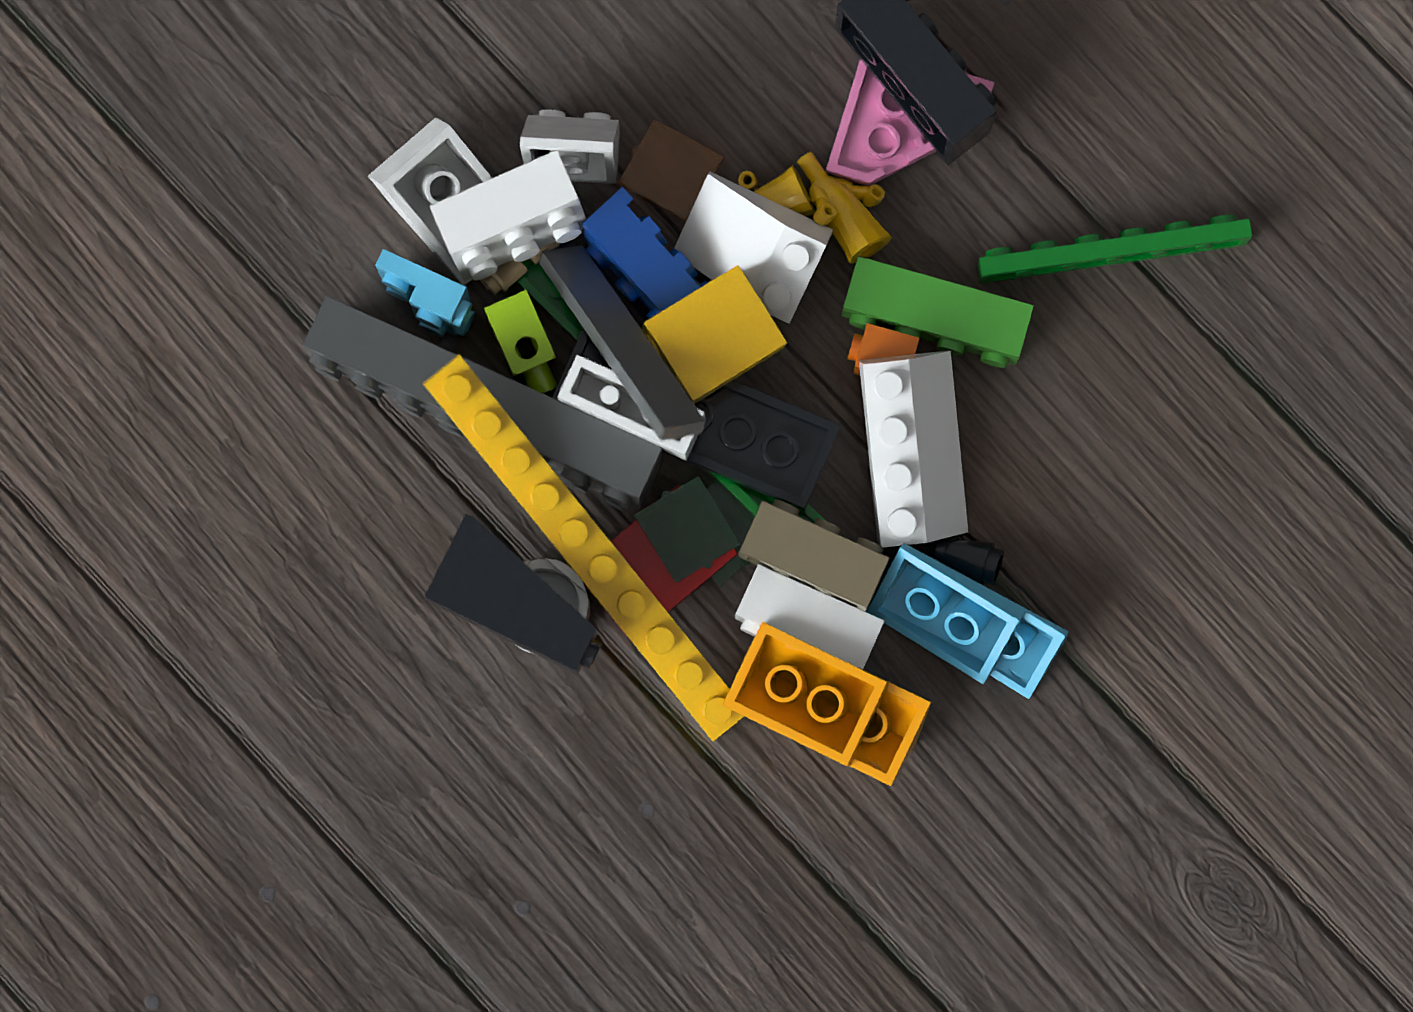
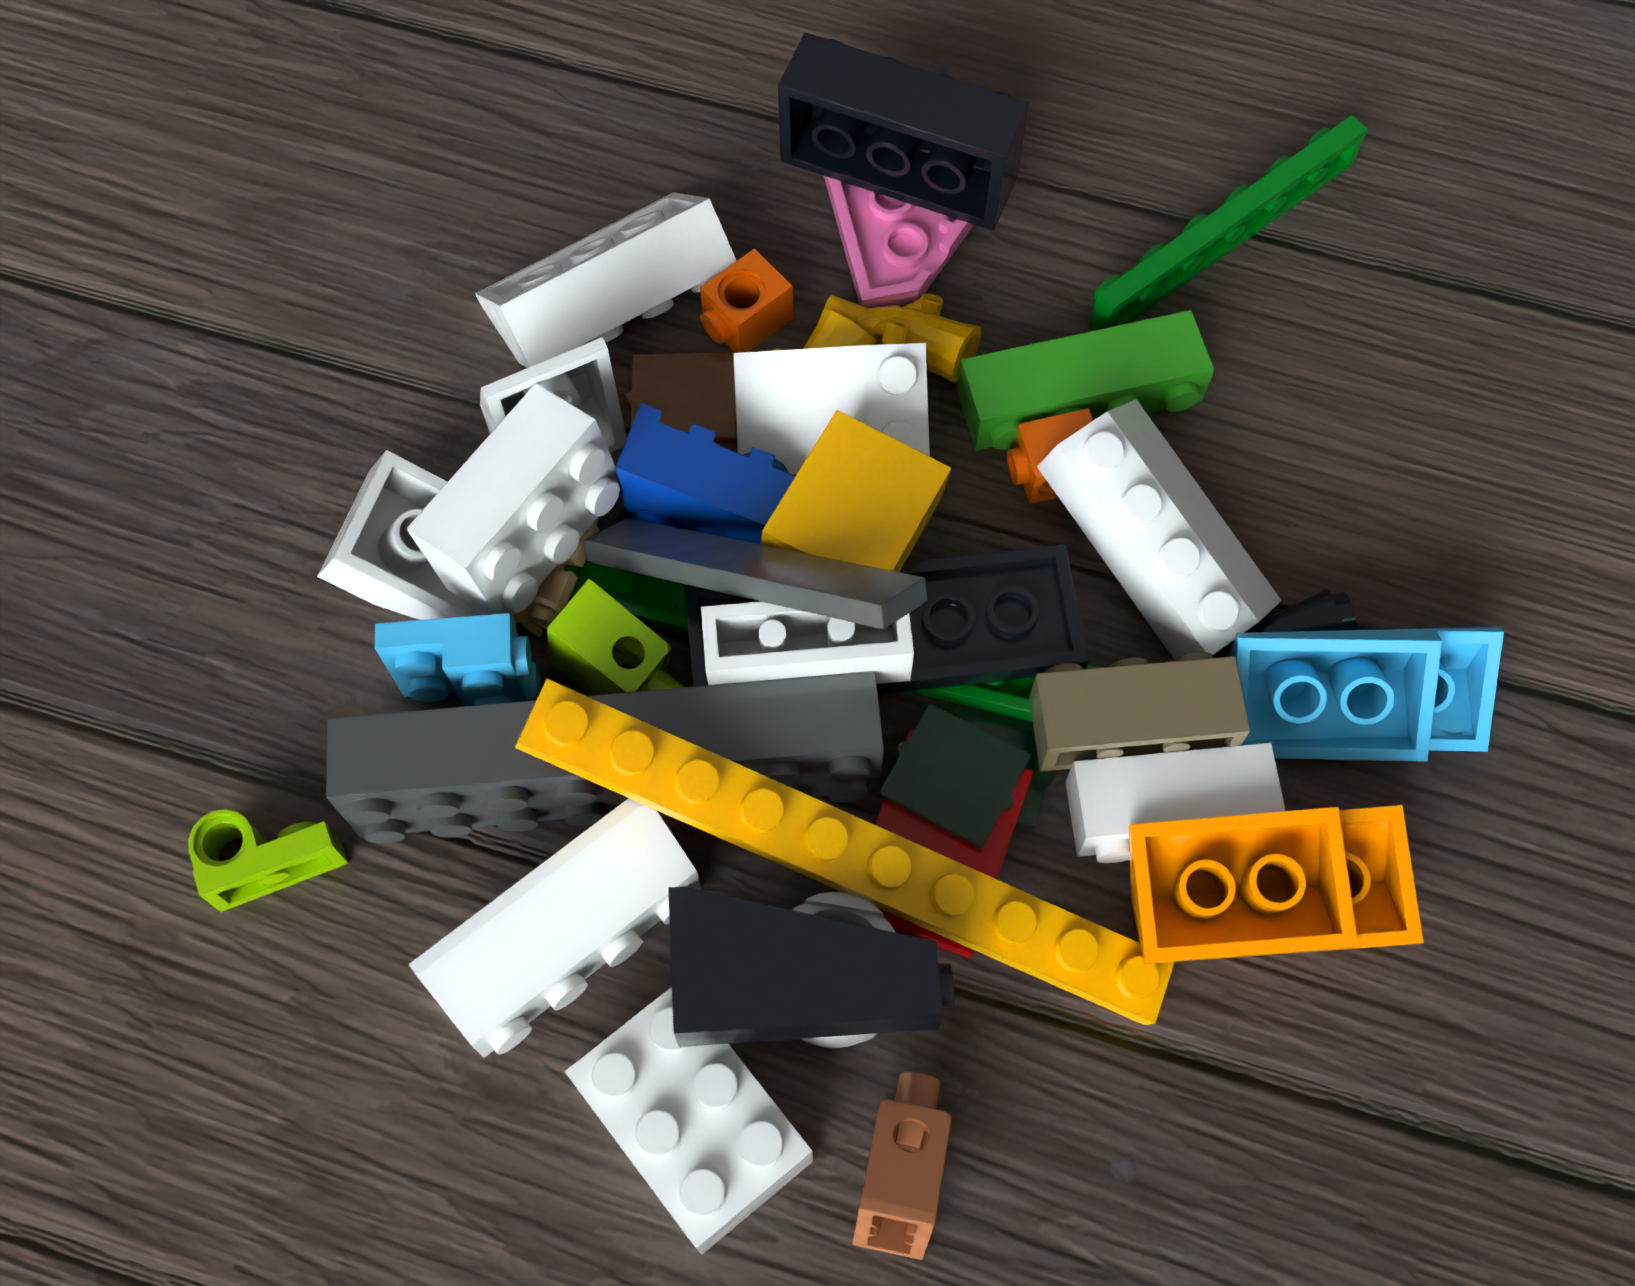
camera: 30 degrees left, 15 degrees down
(244, 352) = (259, 865): none -> lime plate
(399, 493) = (556, 928): none -> white slope
(412, 646) = (690, 1123): none -> white brick
(505, 750) = (899, 1185): none -> nougat torso
(665, 54) = (609, 278): none -> white slope
(757, 110) = (750, 283): none -> orange brick

